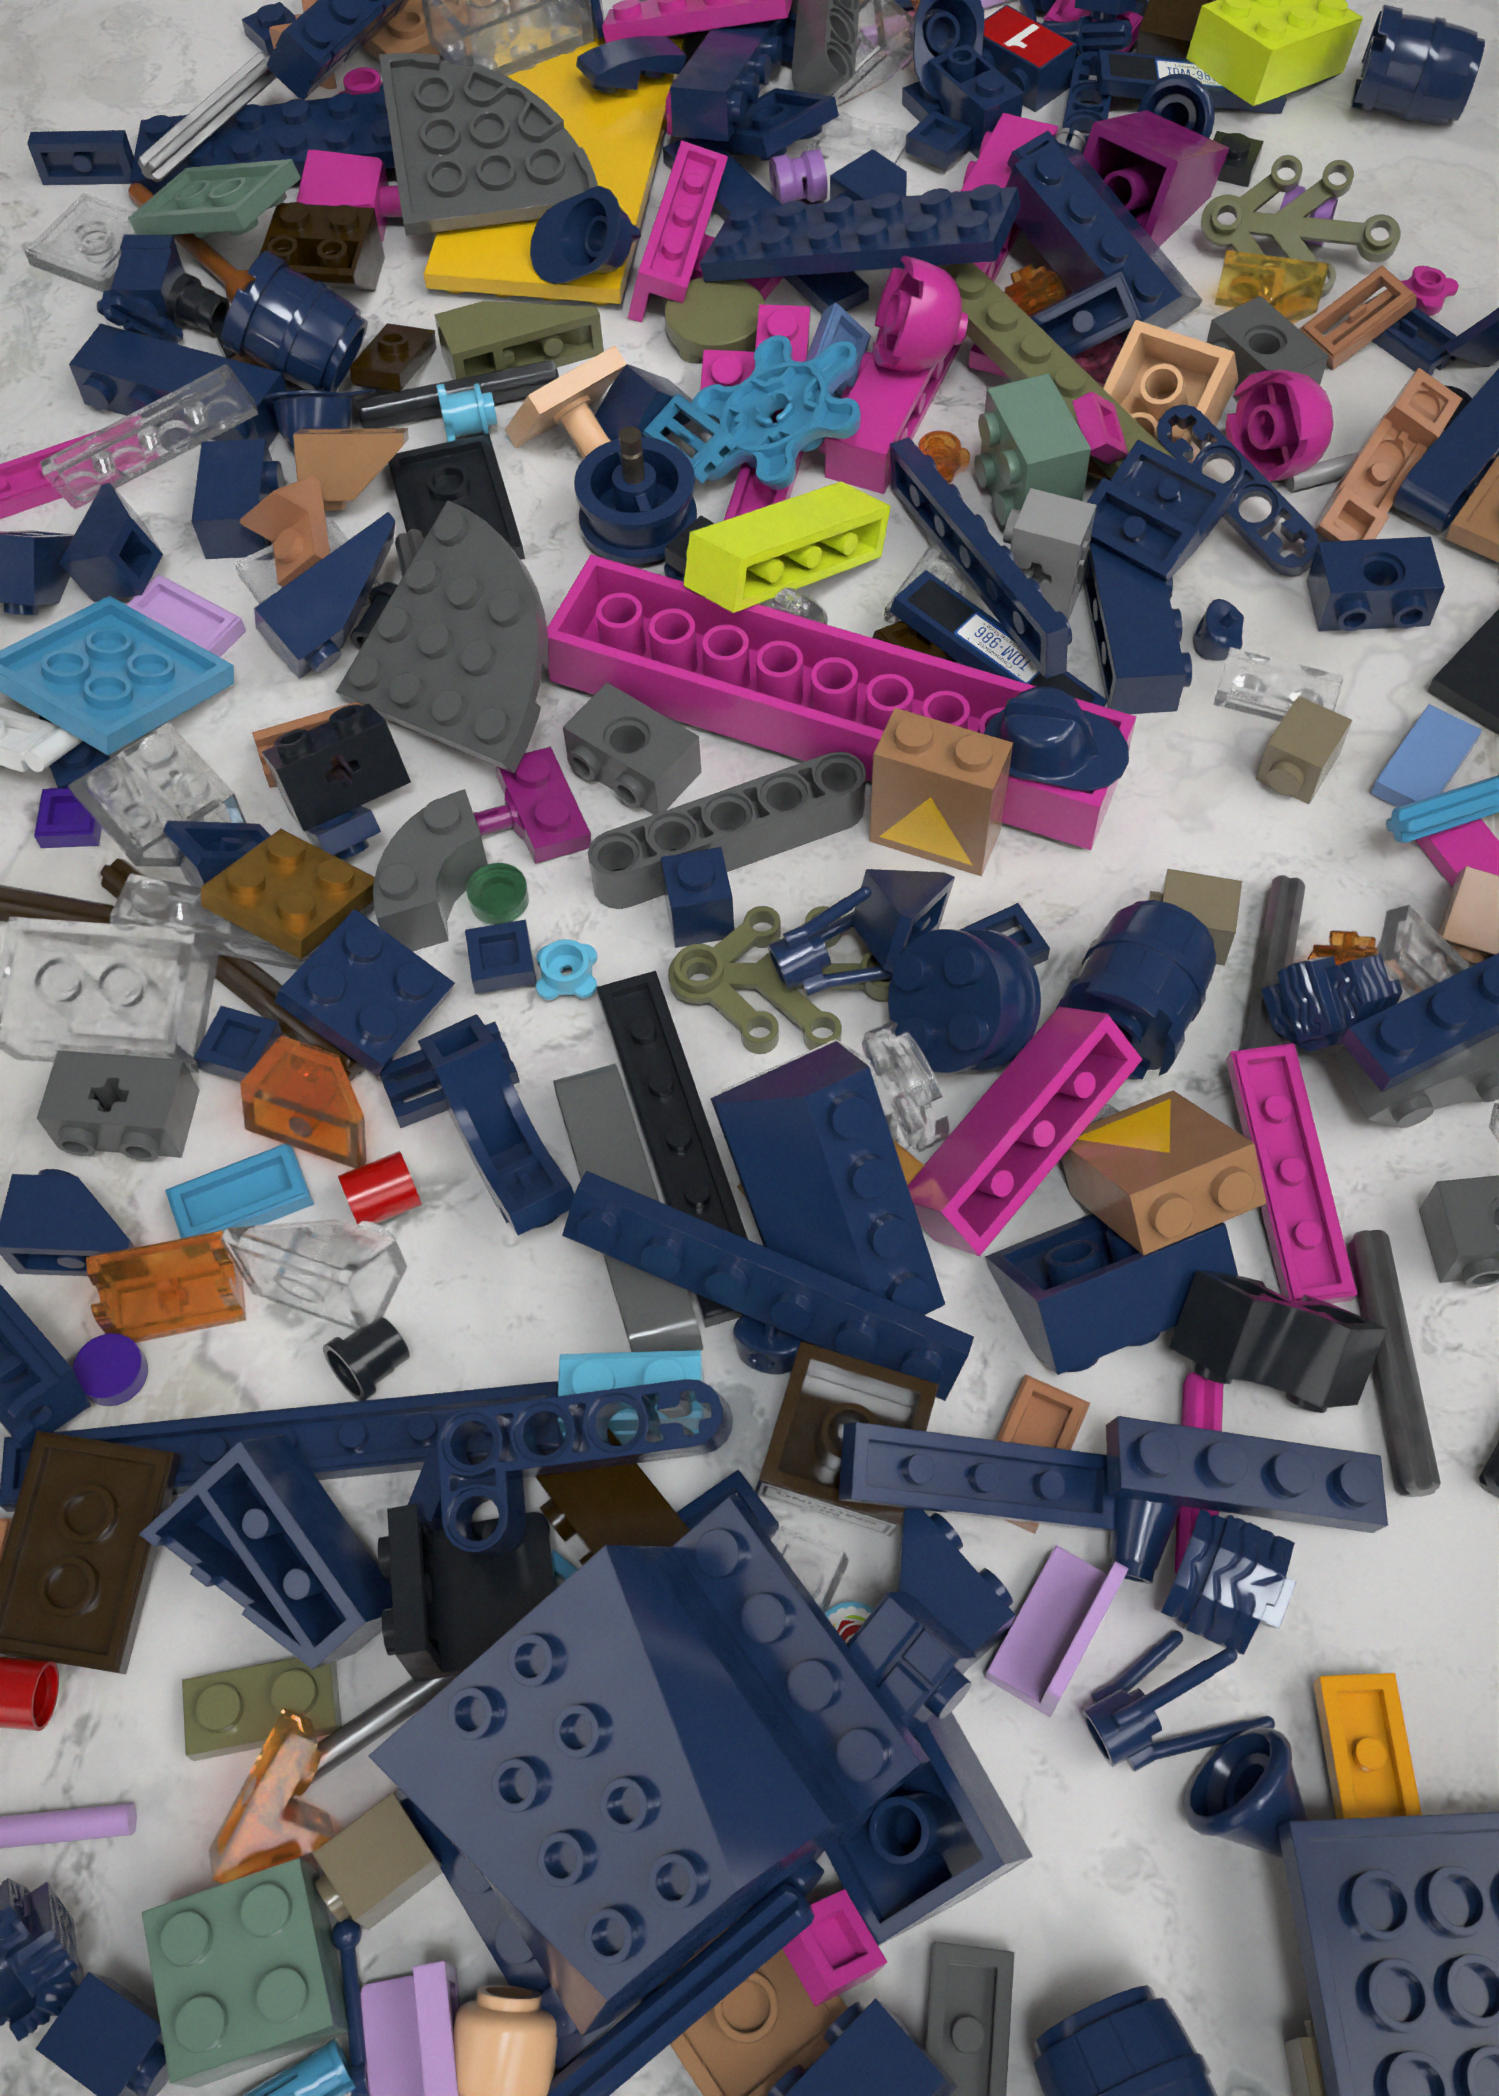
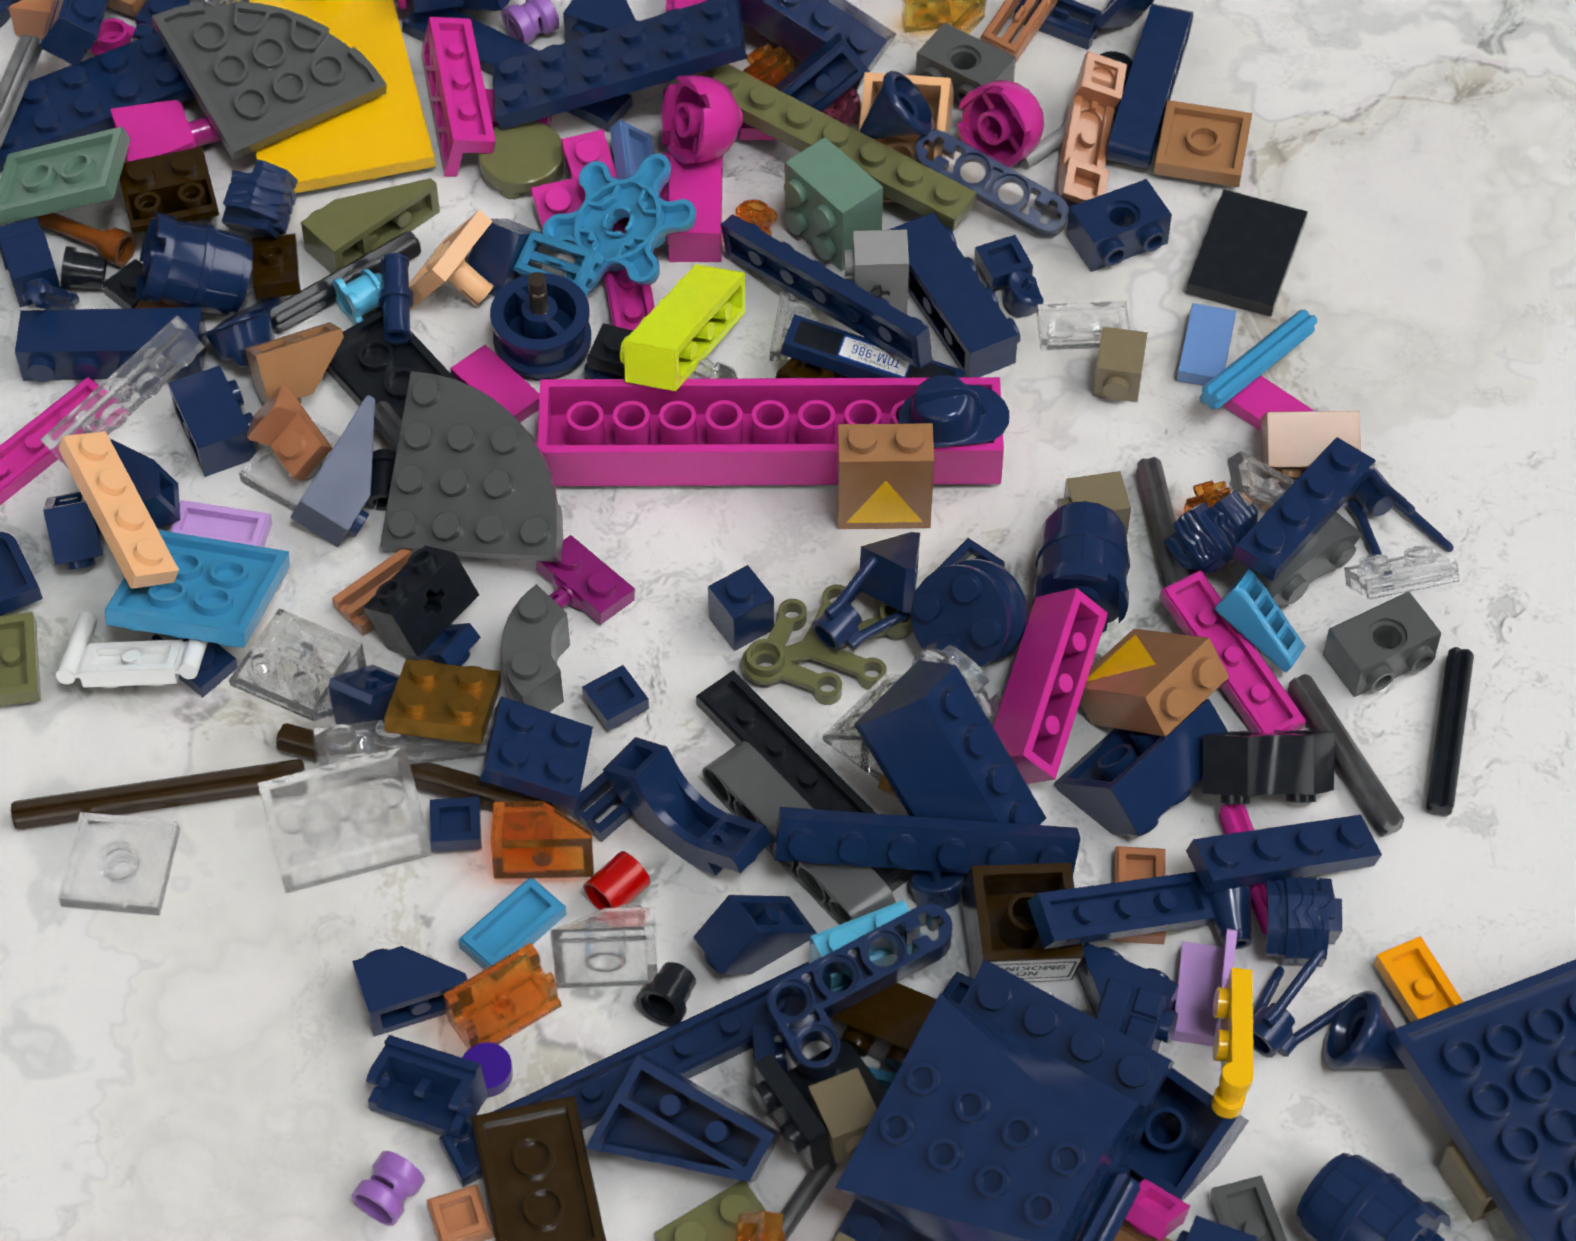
camera: 25 degrees left, 5 degrees down
(55, 557) = (118, 509): none -> light nougat plate
(64, 821) = (220, 708): dark purple tile -> none
(118, 1105) = (392, 893): dark grey brick -> none
(403, 278) = (260, 200): none -> dark blue hair
(469, 1618) = (844, 1110): none -> dark tan brick
(492, 424) = (396, 298): none -> dark blue pin
(498, 893) = (586, 654): clear green tile -> none
(508, 1316) = (752, 933): none -> dark blue slope
(555, 550) = (498, 380): none -> dark pink tile
(562, 956) = (666, 680): medium azure plate -> none
(582, 237) = (390, 124): dark blue piece -> none
(632, 750) = (635, 517): dark grey brick -> none
(819, 800) = (757, 533): dark grey beam -> none
(1039, 1755) = (1233, 1043): none -> yellow plate
(1100, 427) = (879, 167): dark pink plate -> none
(1155, 369) = (898, 110): none -> dark blue hat
(1157, 510) = (945, 217): dark blue slope -> none
(1211, 580) = (1000, 258): none -> dark blue plate
(1348, 1138) = (1261, 621): none -> dark azure slope

